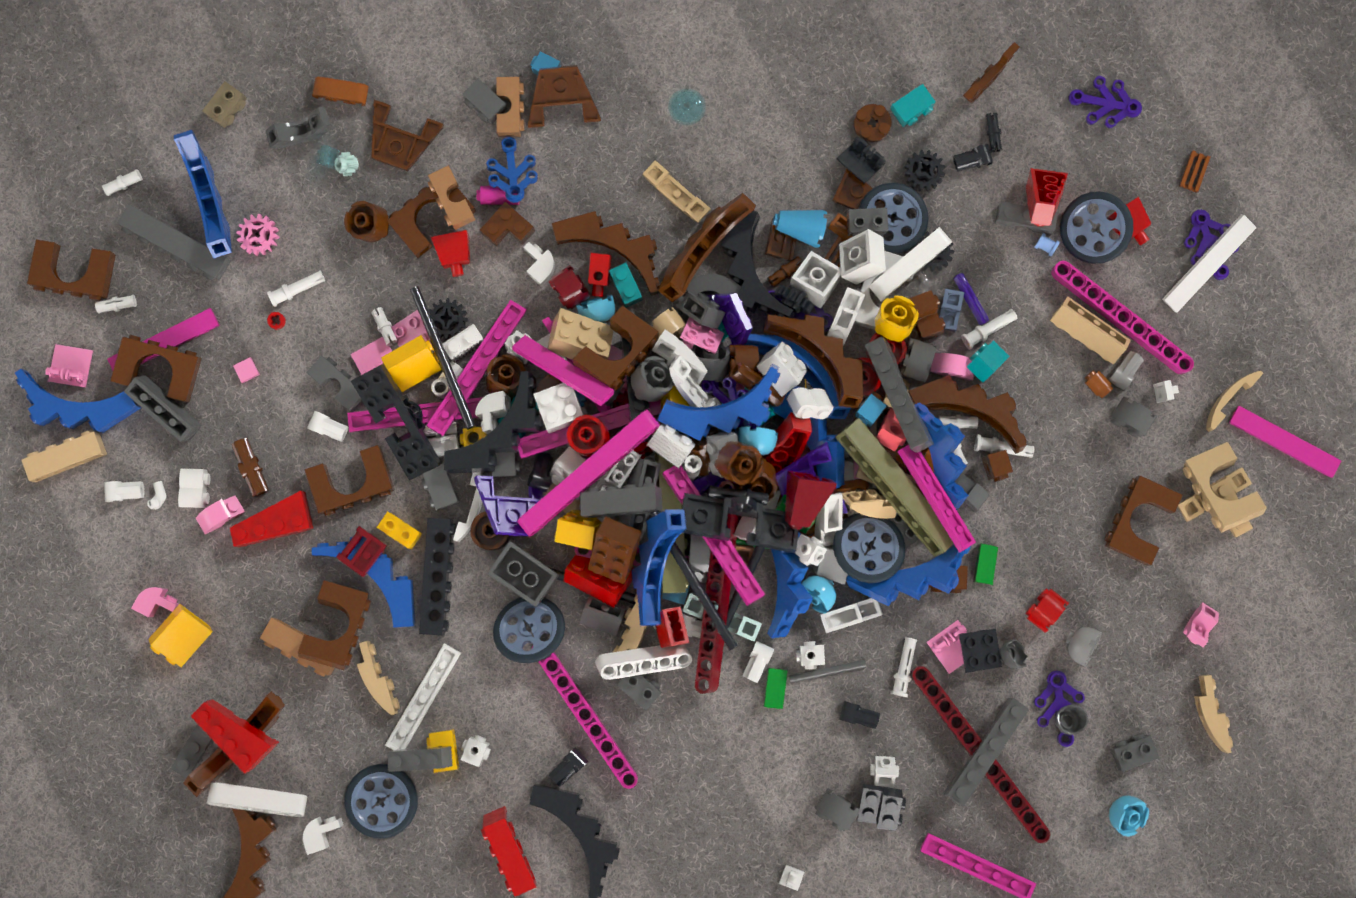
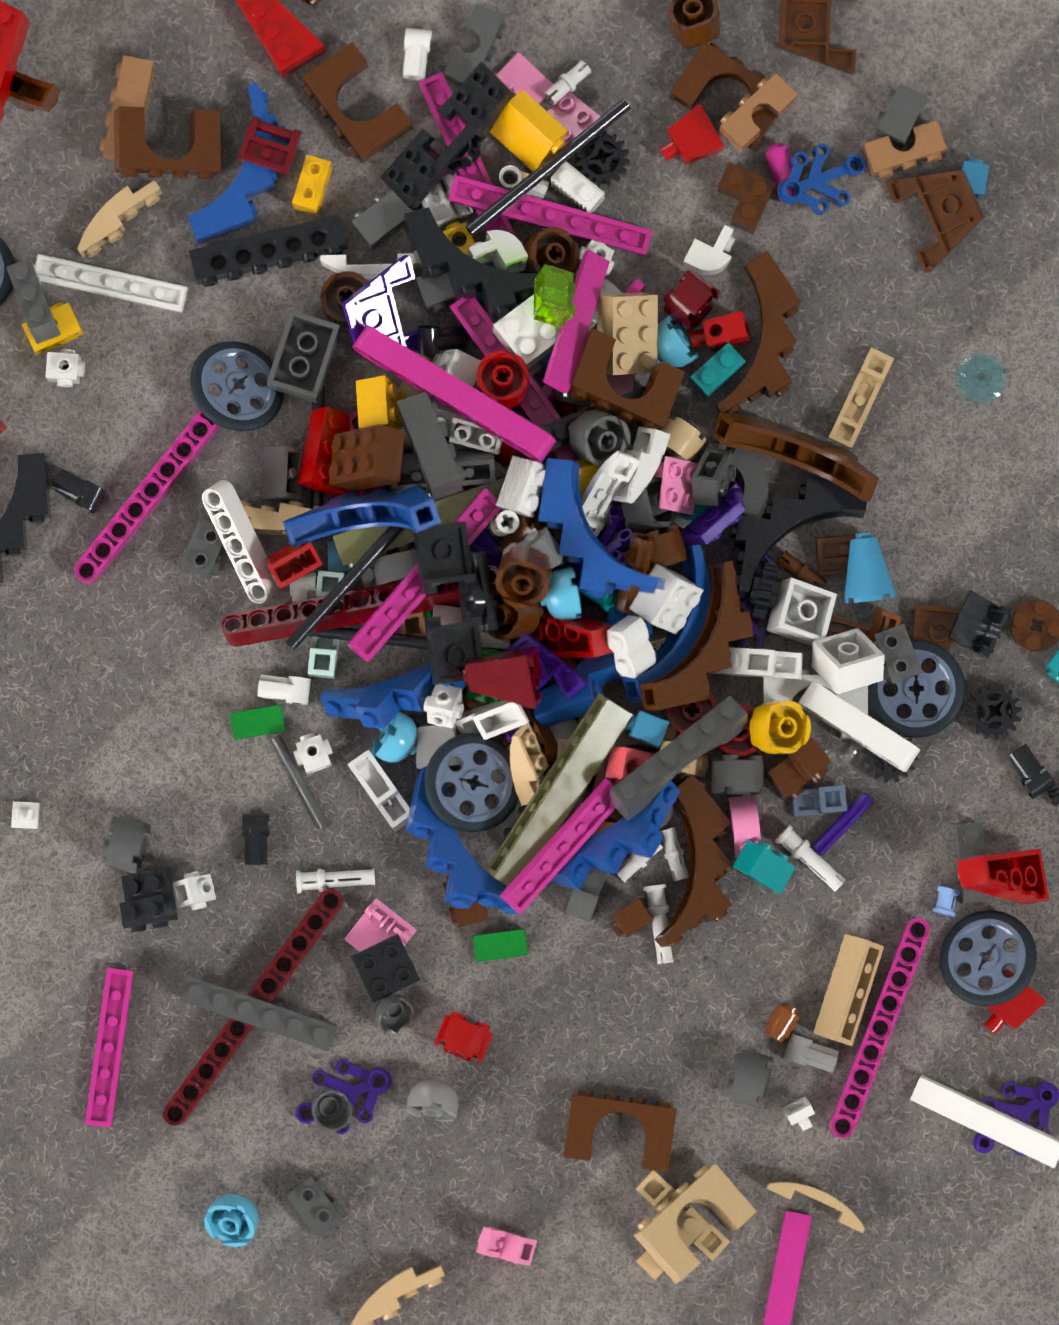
camera: 70 degrees right, 0 degrees up
(540, 379) = (554, 296): none -> clear neon green brick

